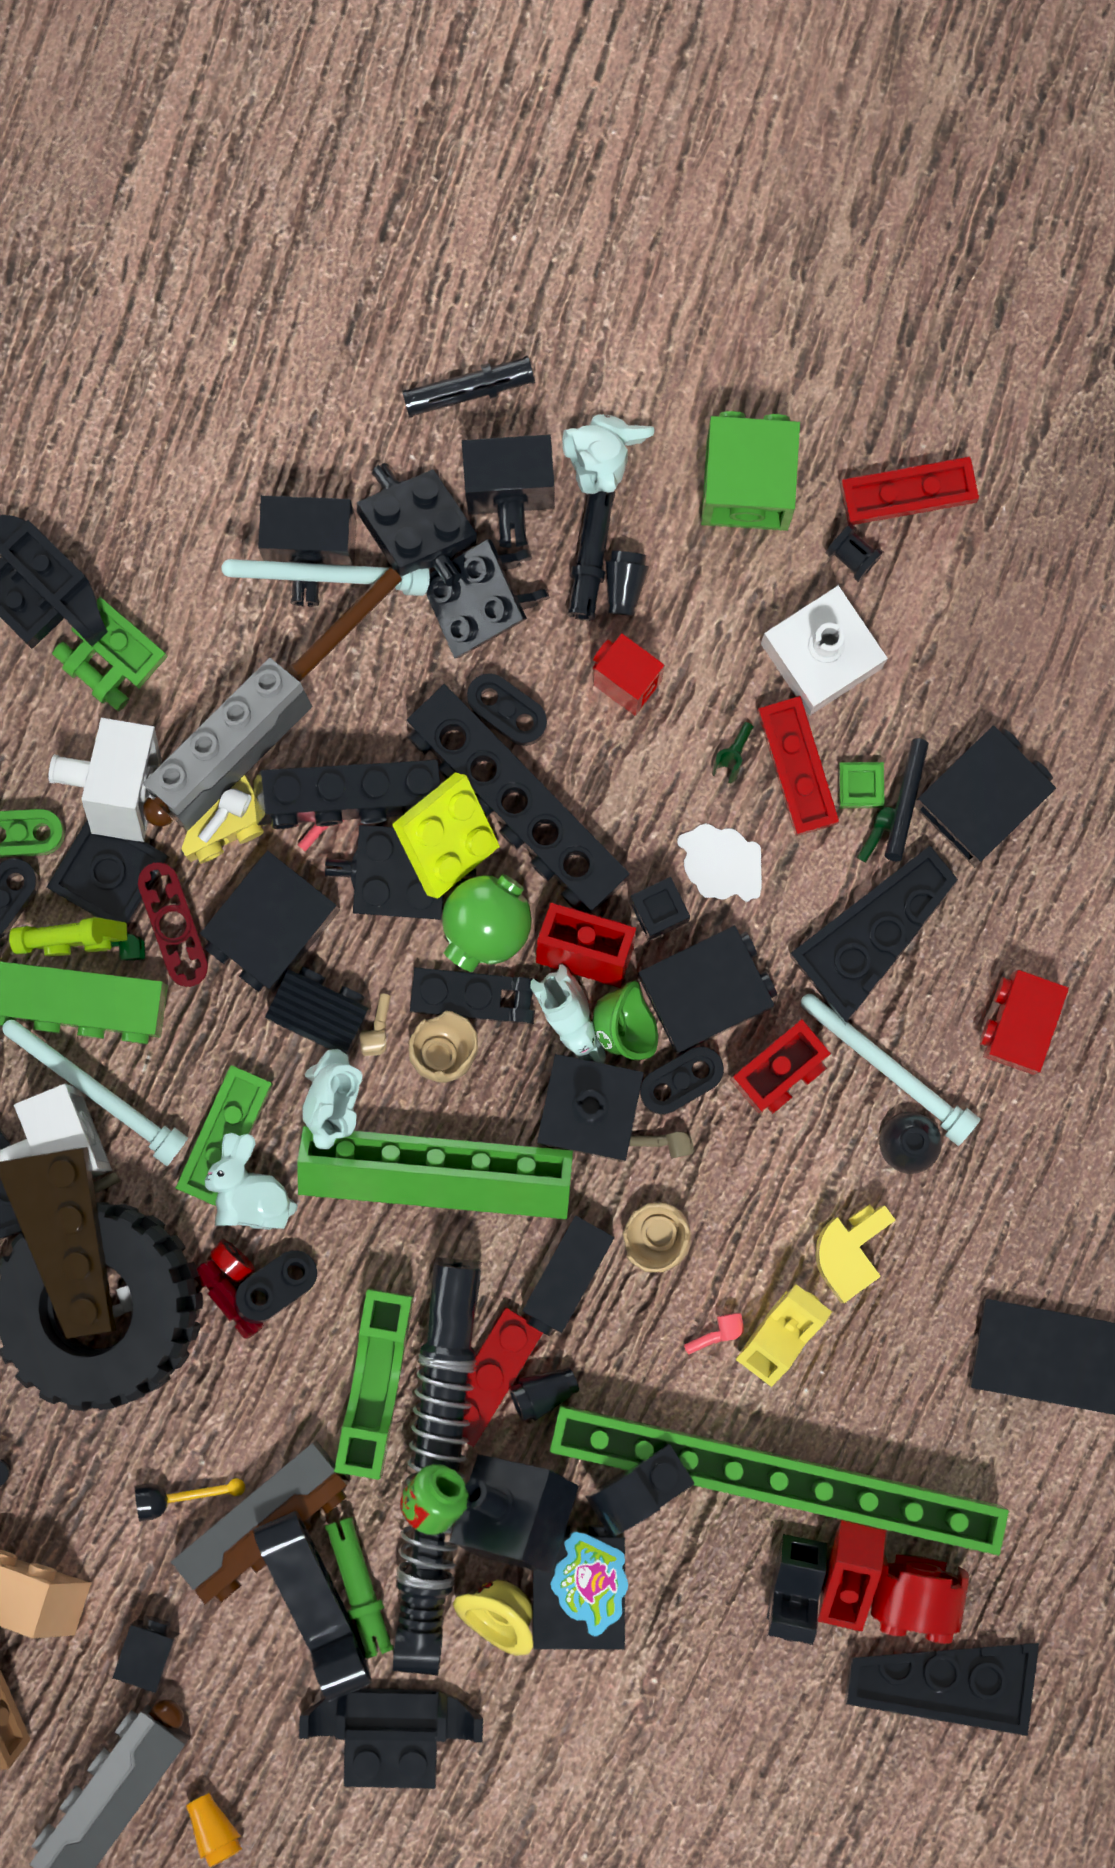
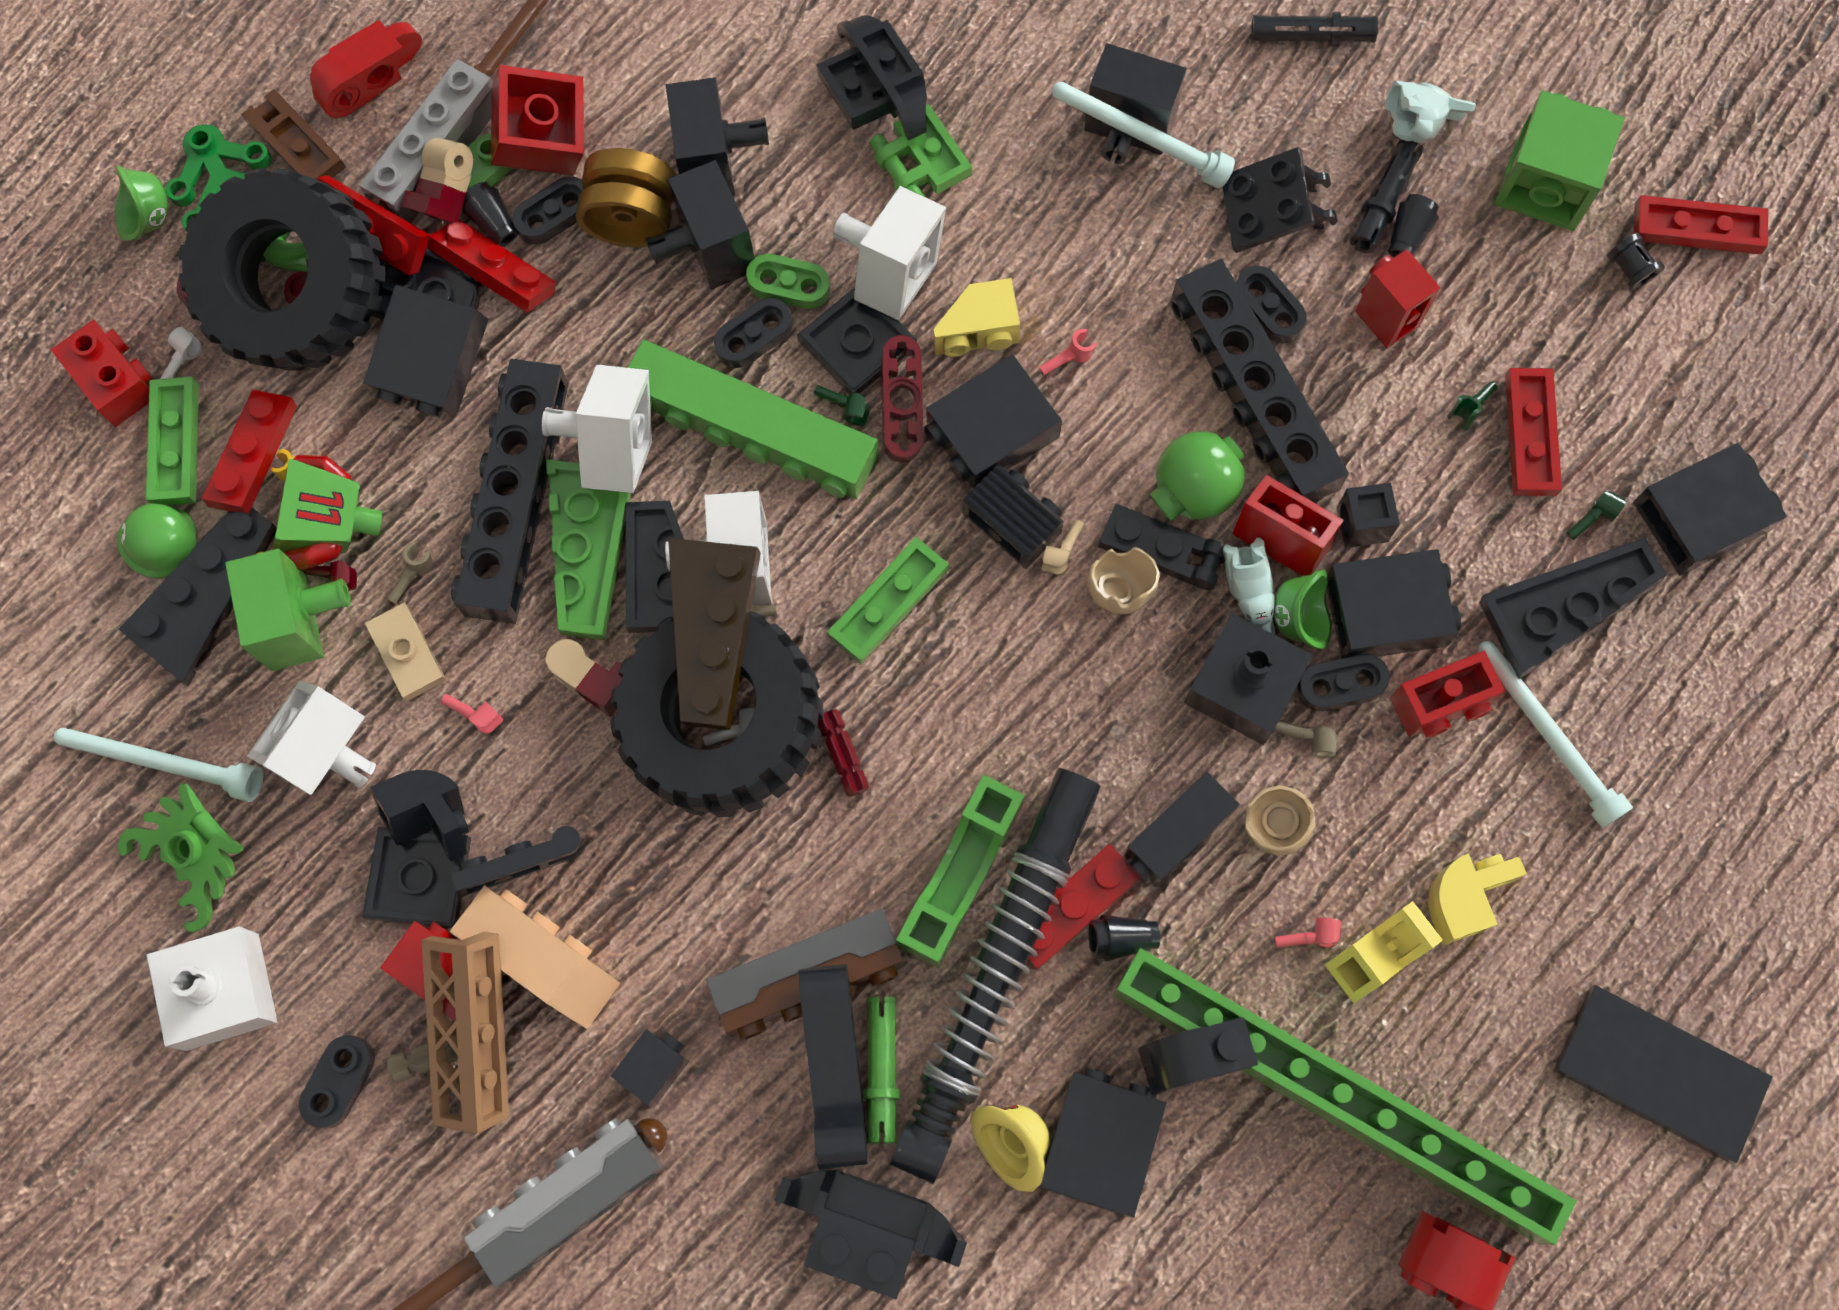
camera: 20 degrees right, 10 degrees down
(57, 940) = (805, 374): lime plate -> none
(153, 1500) = (707, 921): hinge -> none
(163, 1141) = (829, 588): light aqua piece -> none
(213, 1831) = (657, 1270): light orange cone -> none
(232, 802) = (993, 298): white hand -> none
(232, 1260) = (858, 716): red tile -> none
(245, 726) = (1026, 237): piece -> none
(246, 1196) = (891, 659): light aqua animal -> none
(276, 1285) = (895, 753): black plate -> none
(331, 1098) = (1004, 586): light aqua animal -> none
(341, 792) = (1103, 323): black brick -> none
(385, 878) = (1125, 416): black plate -> none
(416, 523) = (1234, 122): black plate -> none
(434, 1499) = (991, 991): bright green head -> none
(437, 1173) = (1081, 691): bright green brick -> none
(446, 835) = (1184, 387): neon yellow plate -> none
(509, 479) = (1333, 103): black brick -> none
(515, 1513) = (1062, 1040): black brick -> none
(591, 1582) = (1119, 1136): sticker -> none
(722, 862) = (1434, 500): white sticker -> none
(796, 1589) = (1327, 1215): black brick -> none
(823, 650) = (1586, 334): white brick -> none
(852, 1575) = (1391, 1217): red brick -> none
(861, 784) = (1588, 468): bright green tile -> none
(906, 800) = (1633, 489): black bar -> none
(910, 1142) = (1554, 811): black brick -> none
(1024, 1021) = (1701, 726): red brick -> none

